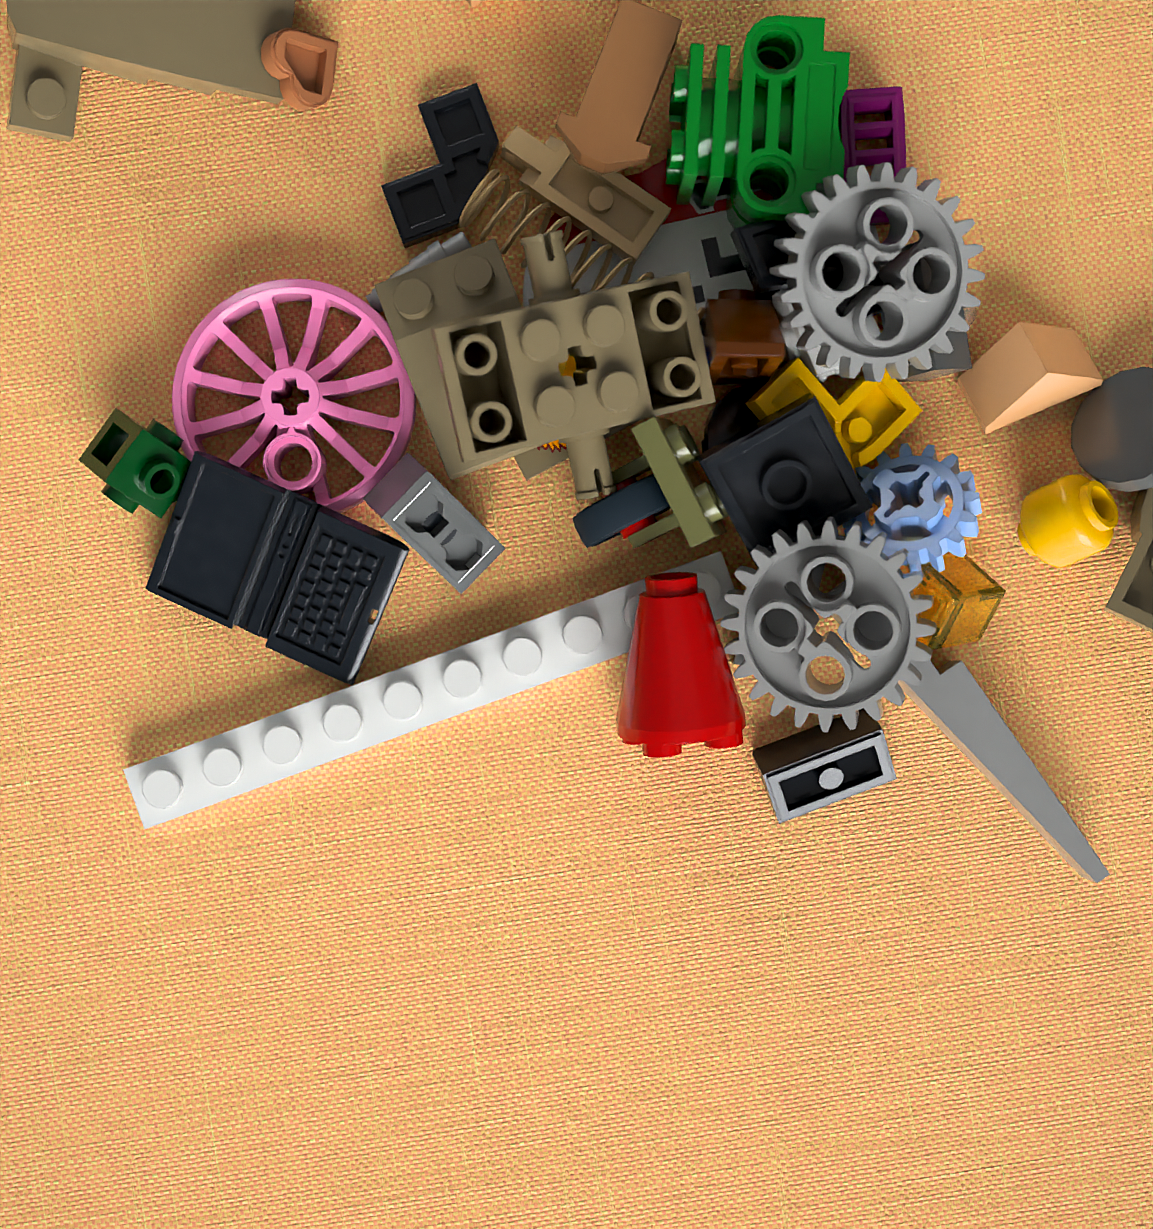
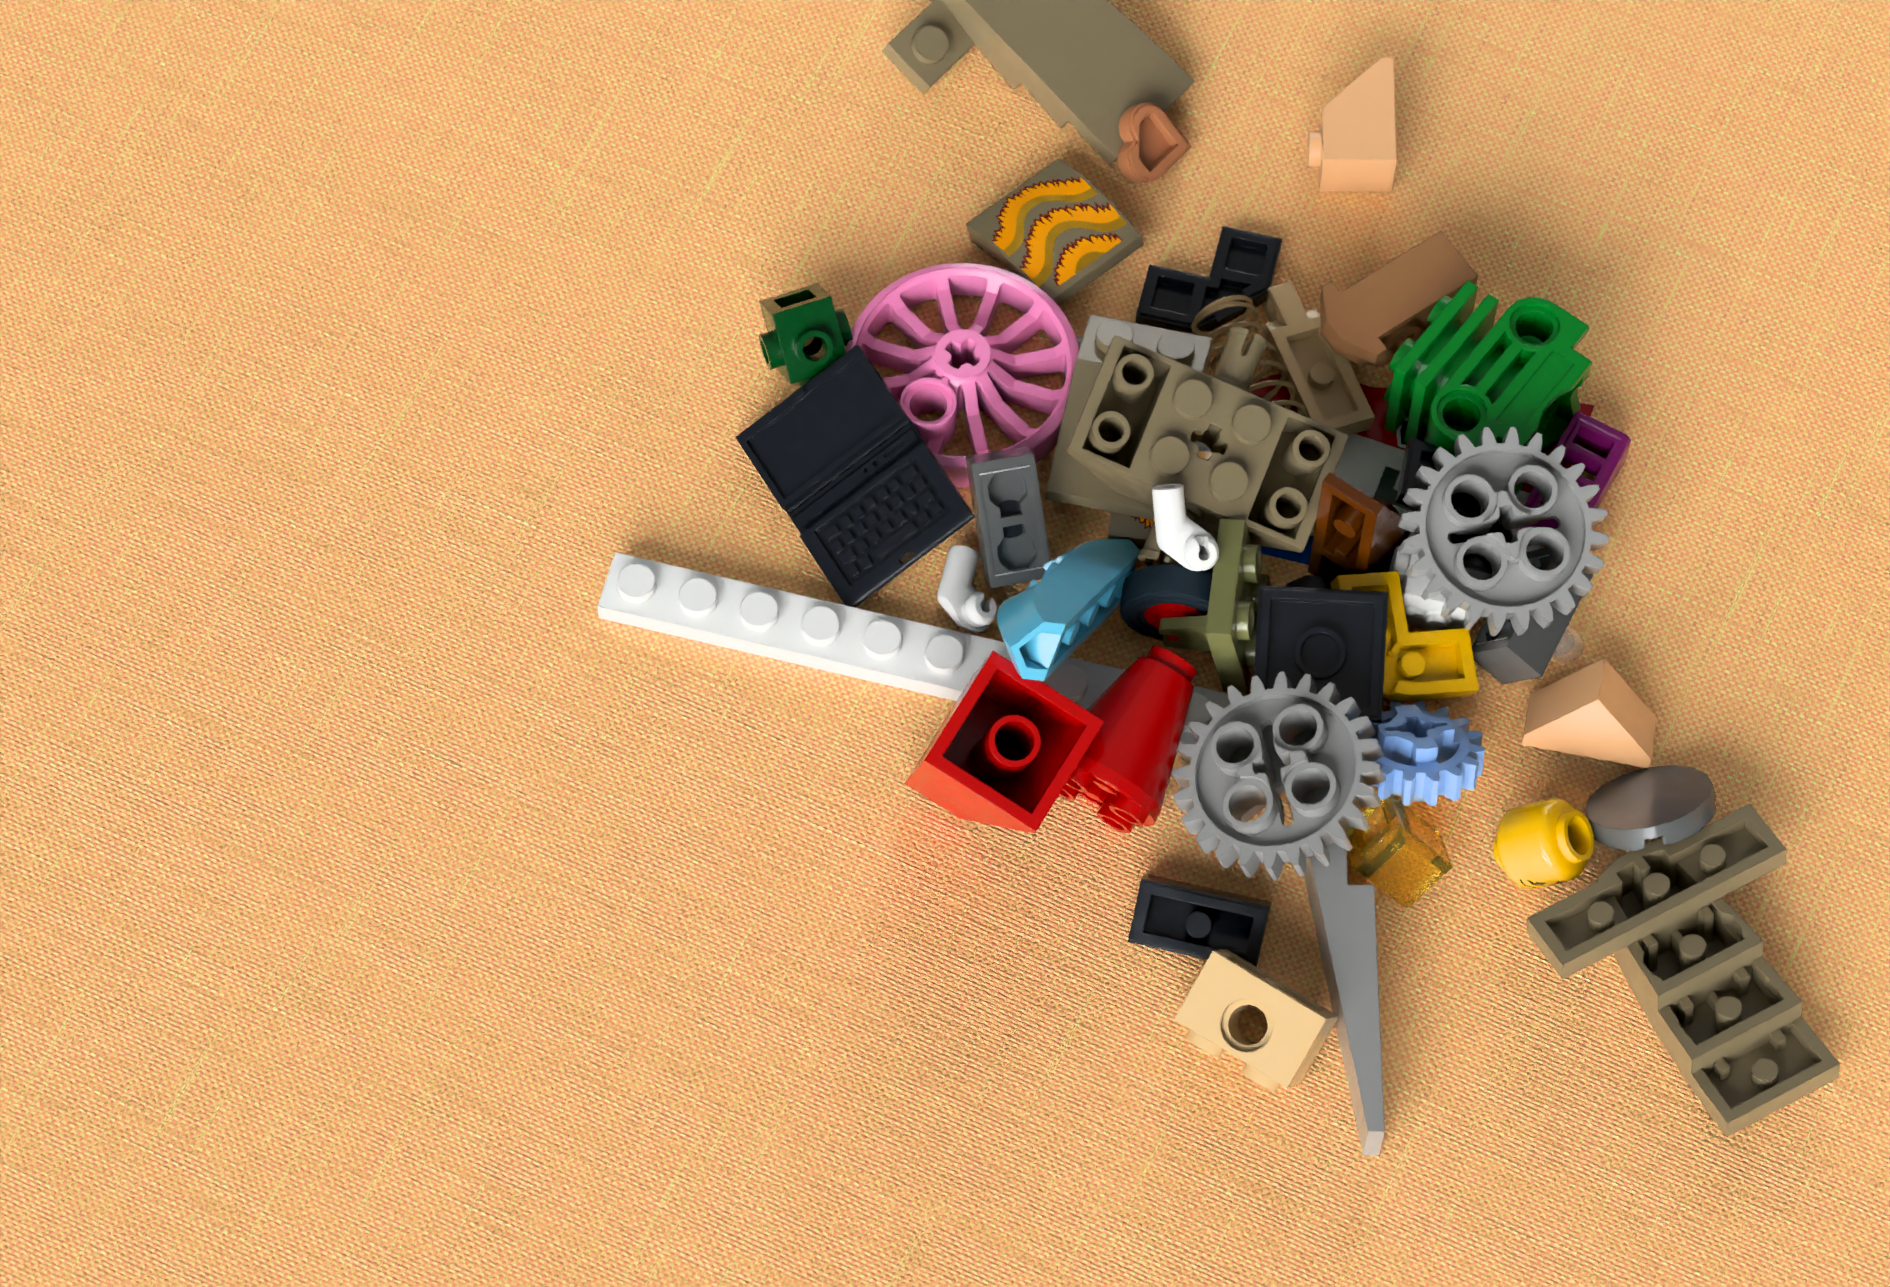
camera: 35 degrees right, 25 degrees down
(280, 209) = (1056, 231): none -> slope
(434, 609) = (957, 594): none -> white arm
(557, 645) = (1066, 606): none -> medium azure brick
(587, 764) = (1004, 749): none -> red slope
(608, 469) = (1178, 534): none -> white arm
(967, 819) = (1294, 1022): none -> tan brick

